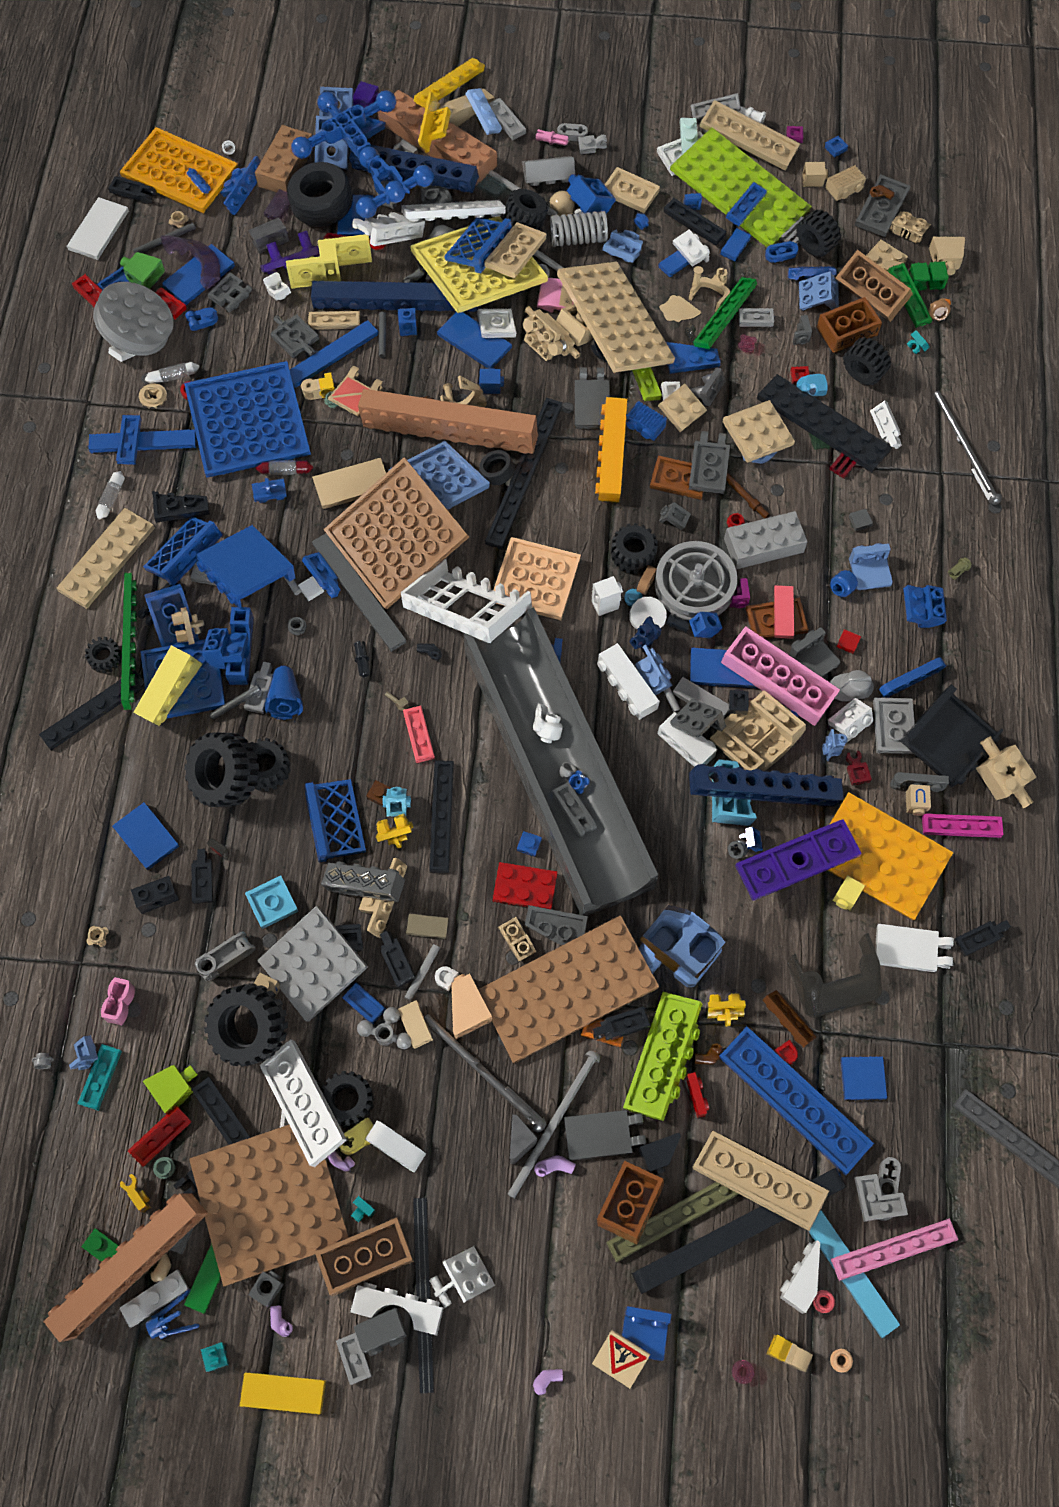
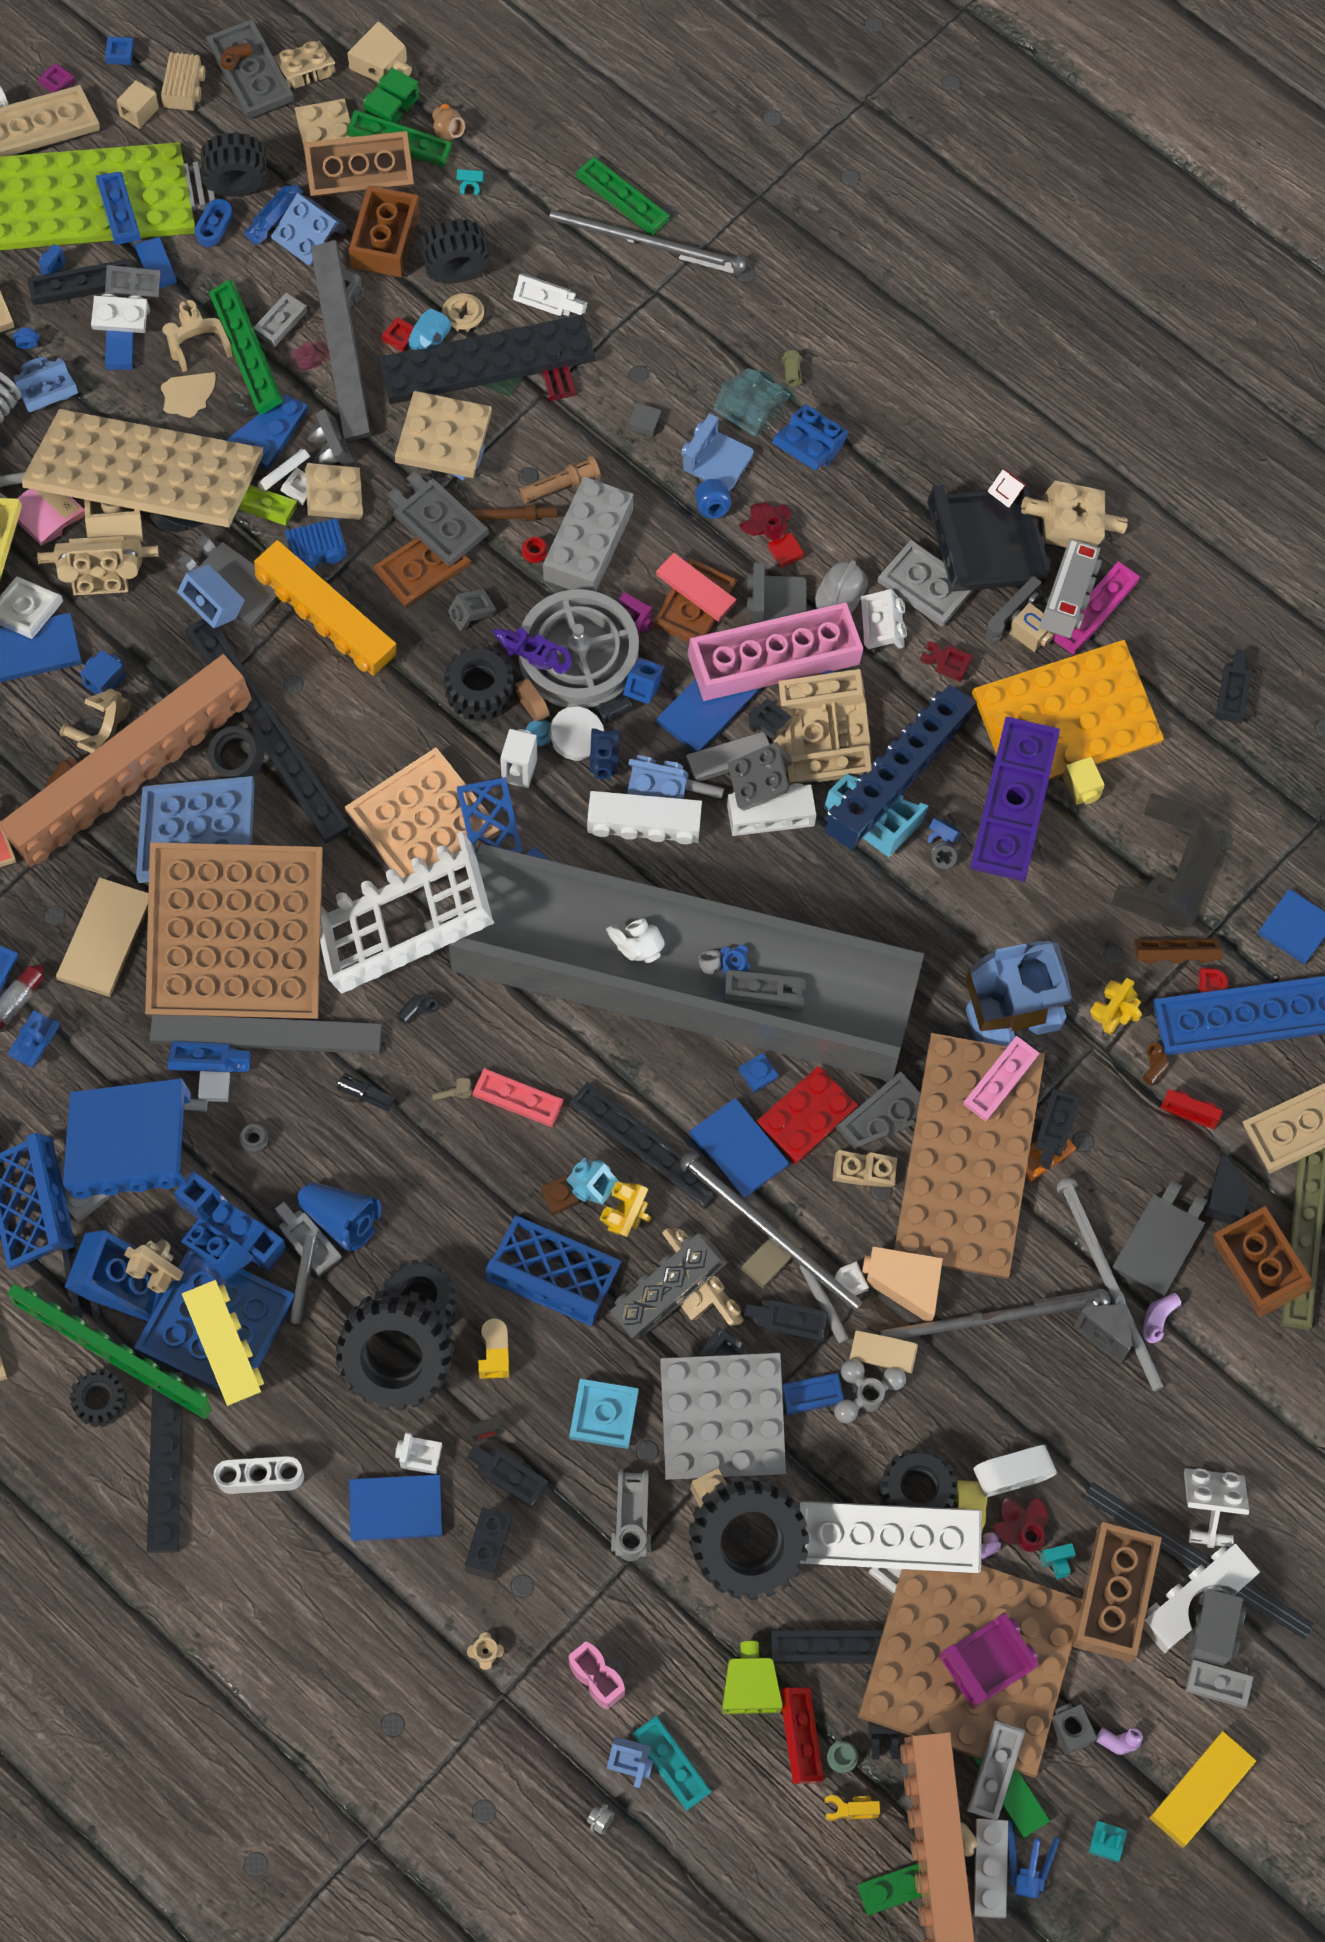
camera: 55 degrees left, 0 degrees up
(111, 750) = (245, 1469): none -> white beam
(181, 825) = (418, 1454): none -> white bracket
(209, 1259) = (996, 1770): none -> light grey tile
(267, 822) = (496, 1342): none -> leg
(268, 1209) = (989, 1660): none -> magenta panel
(371, 1171) = (1022, 1521): none -> dark red plate
(445, 842) = (690, 1162): none -> flat silver bar
(477, 864) = (739, 1148): none -> blue tile
(564, 621) = (505, 804): none -> blue window
(571, 393) = (210, 596): none -> medium blue brick
(621, 971) = (1001, 1078): none -> bright pink plate
(664, 1056) = (1124, 1109): lime plate -> none
(669, 556) = (535, 650): none -> dark purple animal
(672, 376) = (283, 470): none -> white tile
(712, 239) = (132, 282): none -> flat silver hinge
(768, 350) = (341, 341): none -> flat silver tile
(802, 512) = (570, 476): none -> medium nougat pin
(834, 744) = (902, 662): medium blue hinge -> none
(843, 388) = (457, 304): none -> tan gear
(856, 620) = (767, 521): none -> dark red plate
(911, 948) = (1193, 765): white tile -> none
(912, 677) = (884, 520): blue beam -> none
(920, 558) = (748, 400): none -> clear light blue bracket
(958, 800) = (1070, 588): none -> light grey brick
(981, 418) = (622, 196): none -> green tile
(989, 724) = (1007, 488): none -> tile

